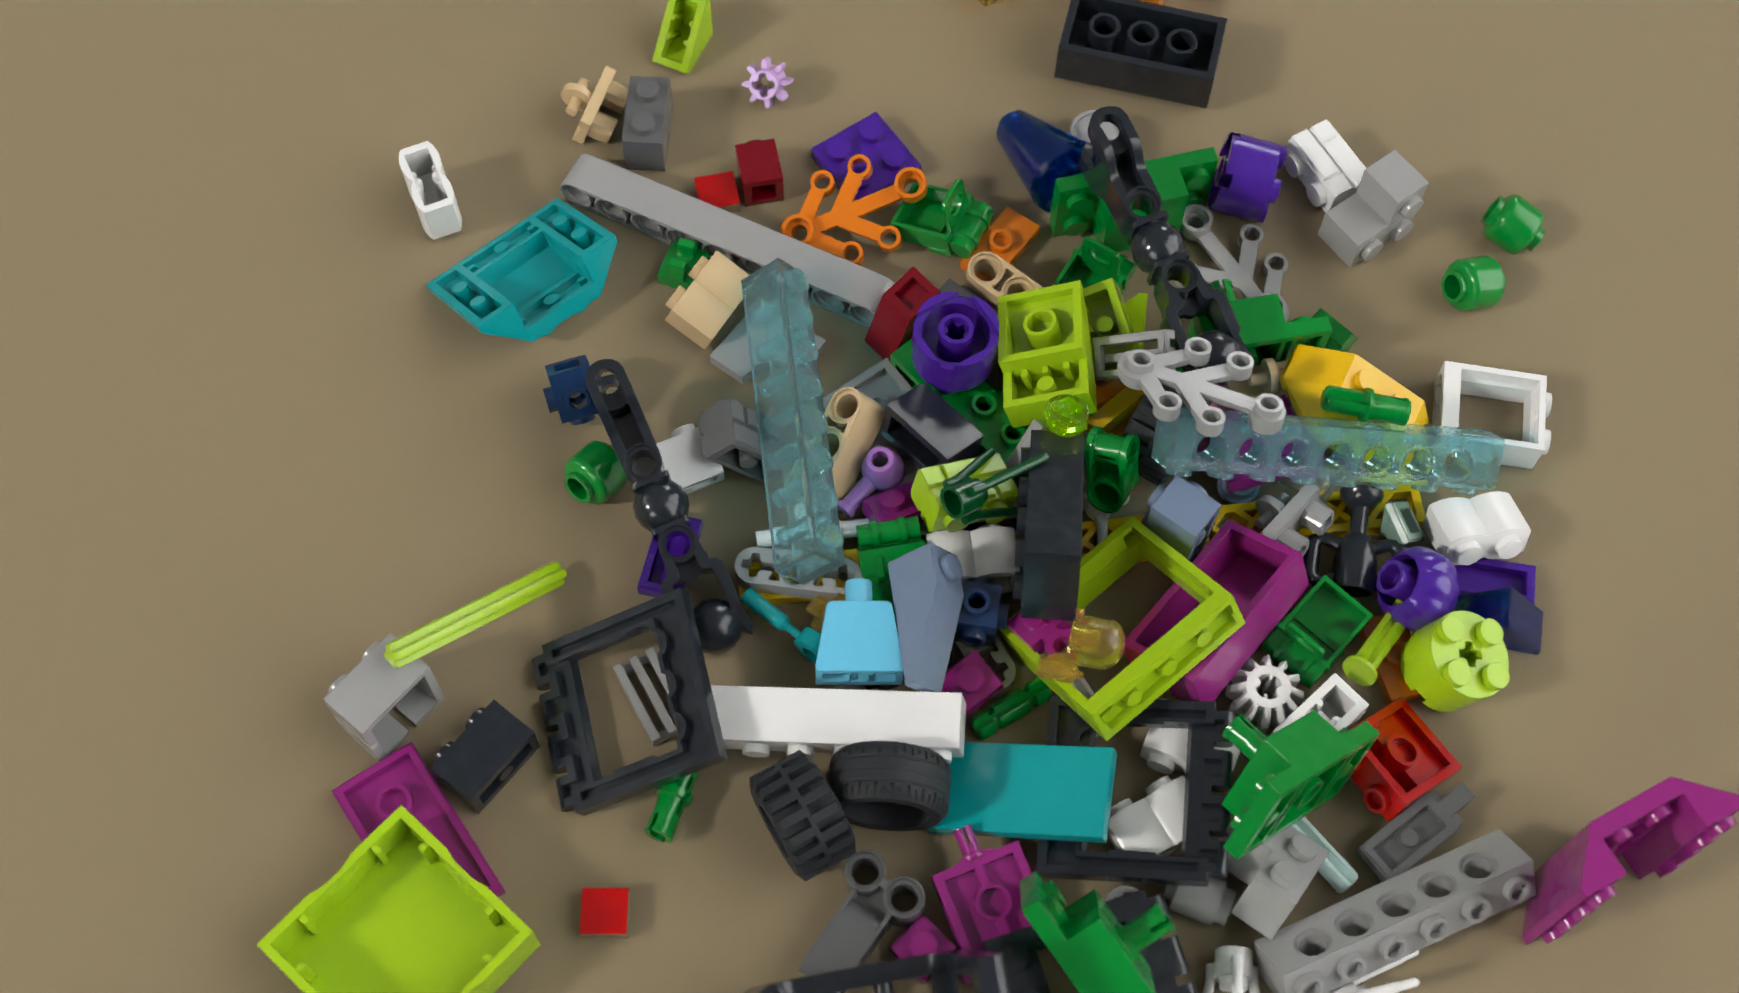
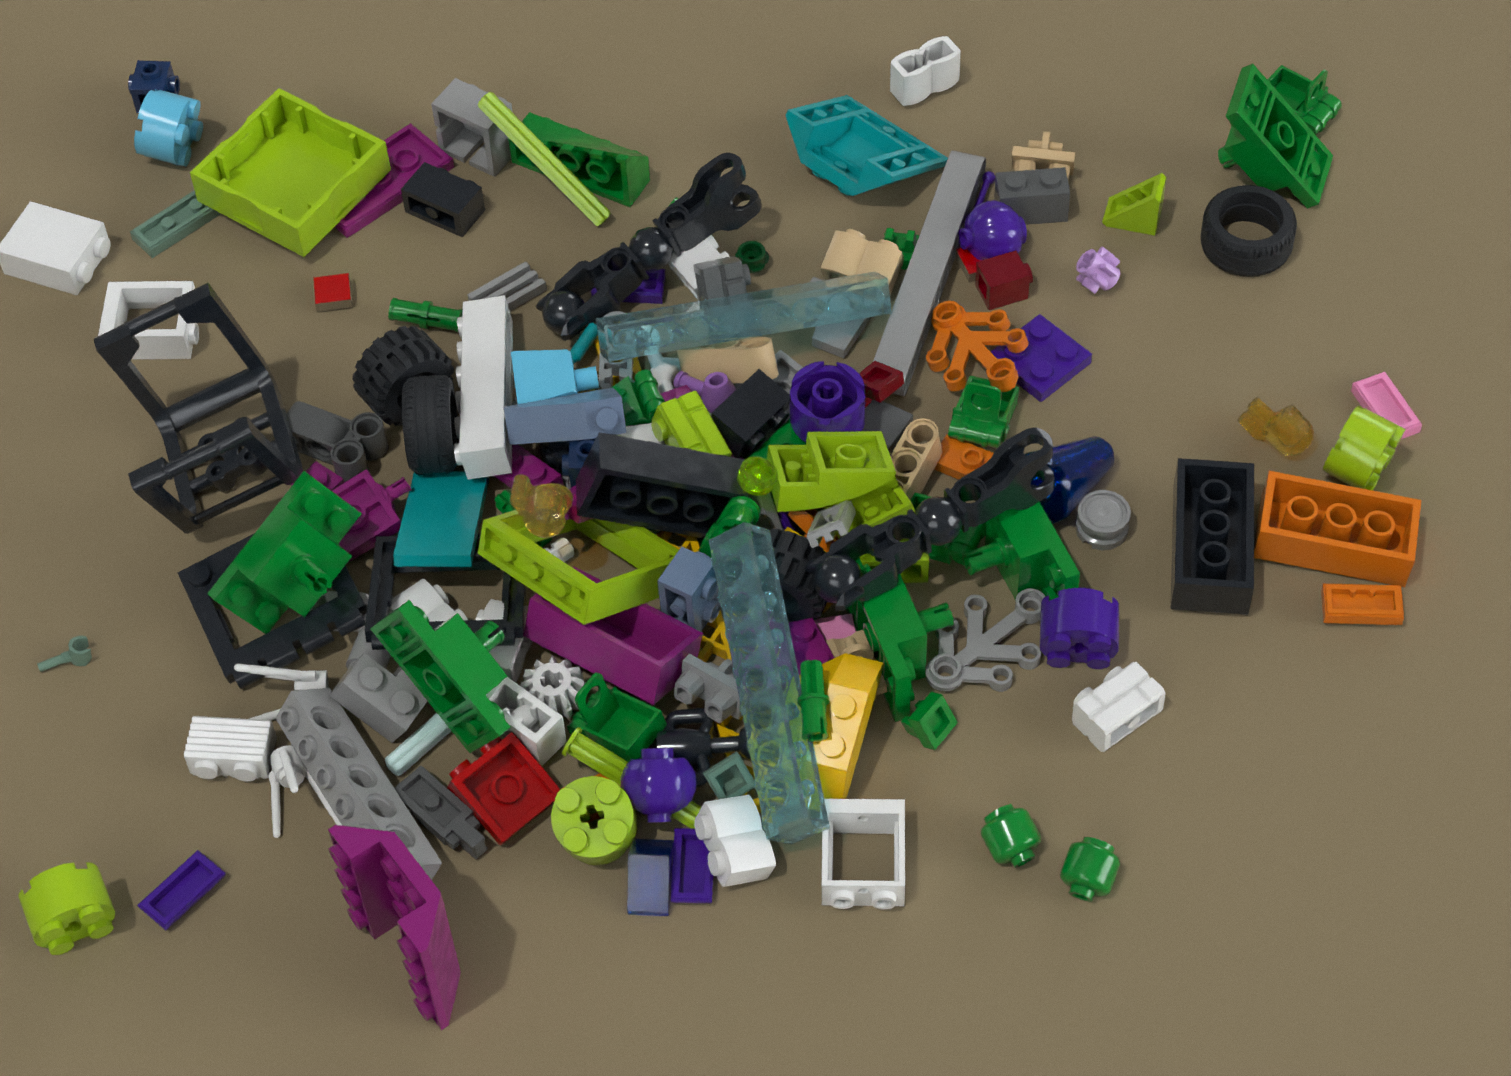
camera: 85 degrees right, 10 degrees down
(473, 565) = (596, 162): none -> green wedge
(569, 391) = (768, 186): dark blue brick -> none
(659, 407) = (753, 255): none -> dark green plate
(689, 701) = (486, 290): black hinge -> none
(695, 165) = (992, 230): none -> dark purple plant
(965, 496) = (669, 417): dark green plant -> none
(1147, 372) = (795, 506): light grey plant -> none
(1377, 212) = (1068, 741): light grey brick -> none

